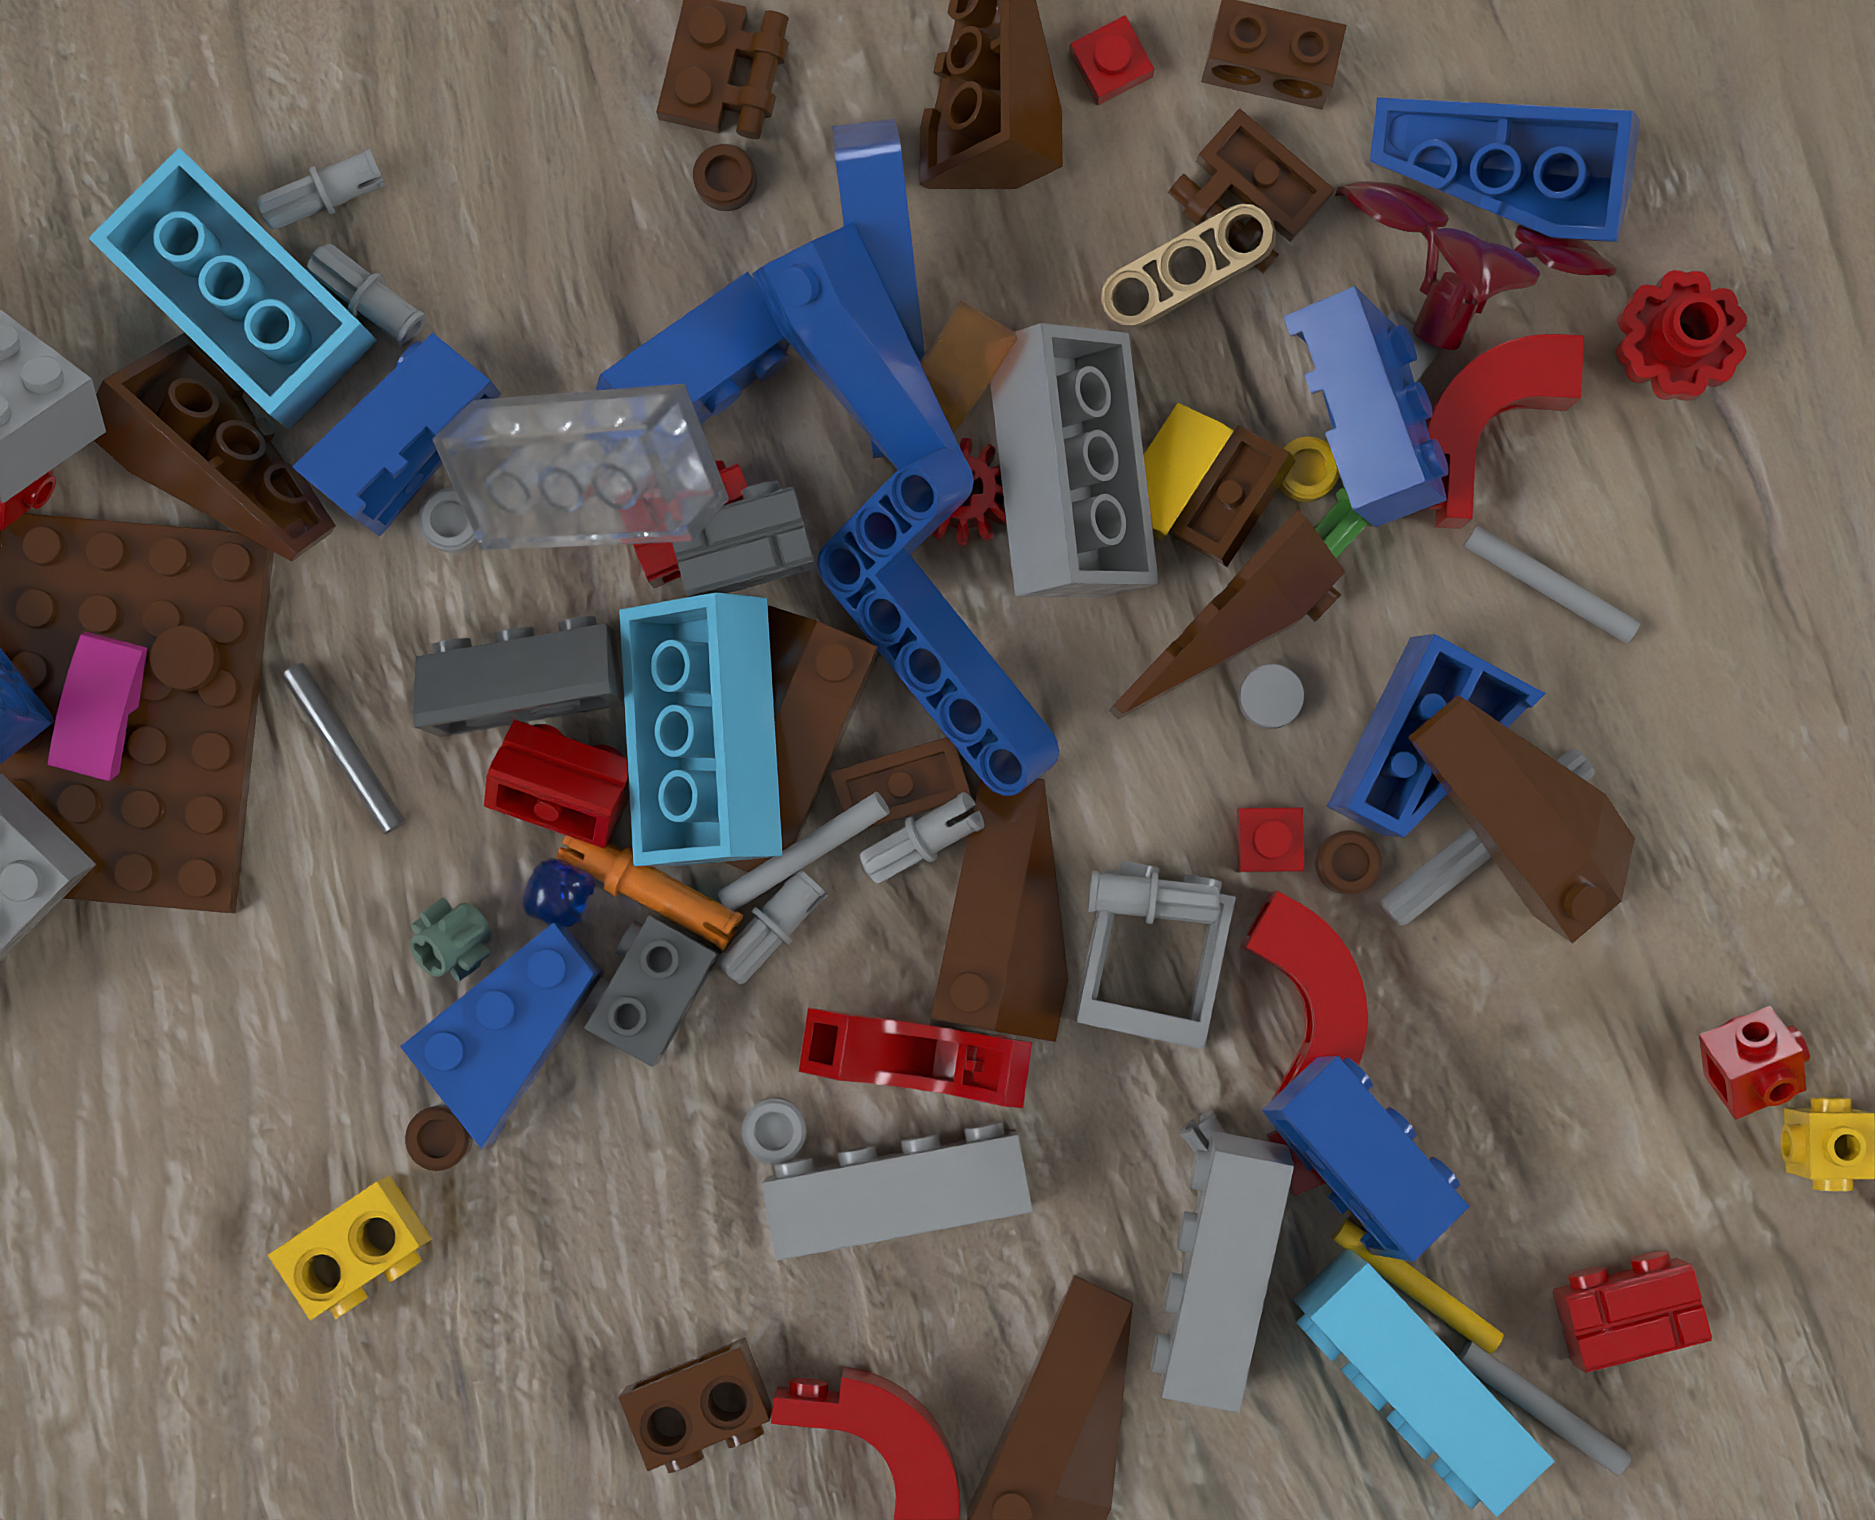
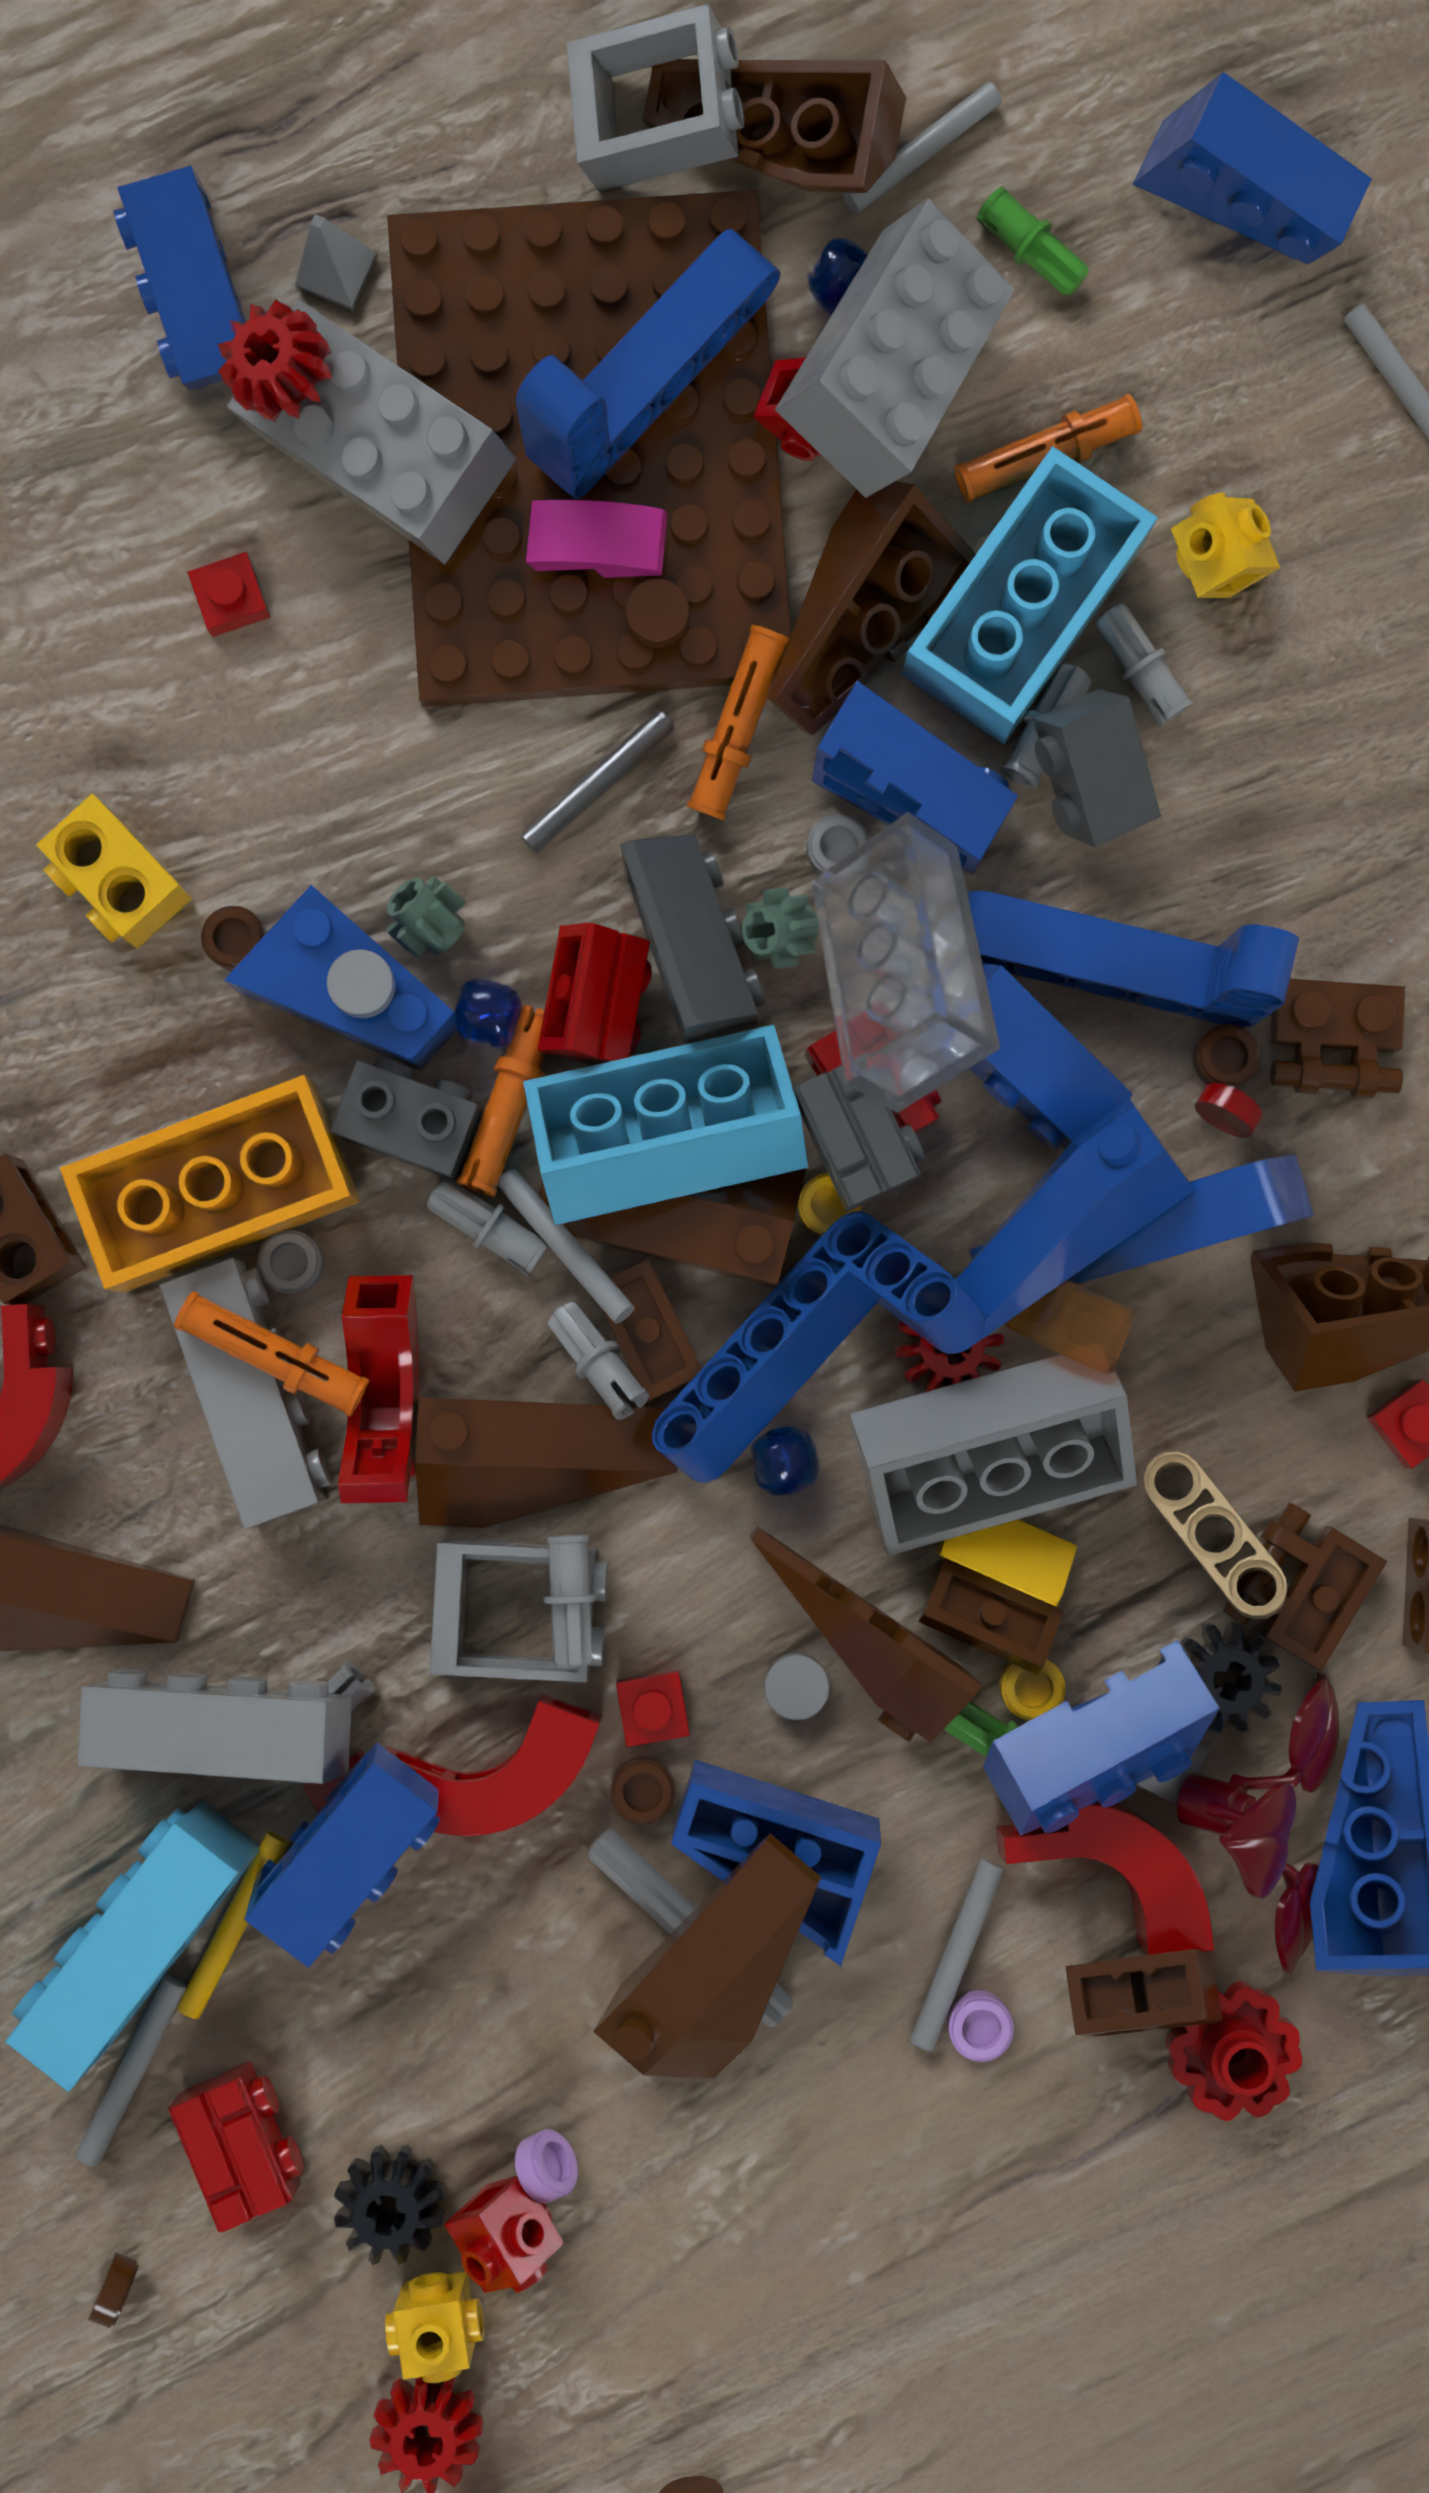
camera: 75 degrees right, 0 degrees up
(71, 177) = (1074, 437): none -> orange pin
(85, 1090) = (229, 594): none -> red plate
(217, 89) = (1224, 545): none -> yellow brick
(309, 597) = (738, 722): none -> orange pin
(418, 251) = (1096, 767): none -> dark grey brick
(509, 1008) = (361, 983): none -> light grey tile
(523, 588) = (780, 927): none -> sand green gear
(653, 167) = (1218, 984): none -> blue beam
(684, 1196) = (210, 1185): none -> light orange brick
(777, 183) = (1228, 1109): none -> red tile
(805, 594) = (820, 1205): none -> yellow tile
(863, 1156) = (203, 1318): none -> orange pin
(1050, 670) = (785, 1461): none -> clear blue piece
(1308, 261) = (1250, 1668): none -> black gear
(1614, 408) = (1143, 1993): none -> reddish brown brick
(1622, 573) = (980, 2026): none -> lavender tile
(1694, 1012) = (546, 2166): none -> lavender tile
(1697, 1192) = (365, 2204): none -> black gear
(1753, 1455) = (114, 2290): none -> reddish brown tile

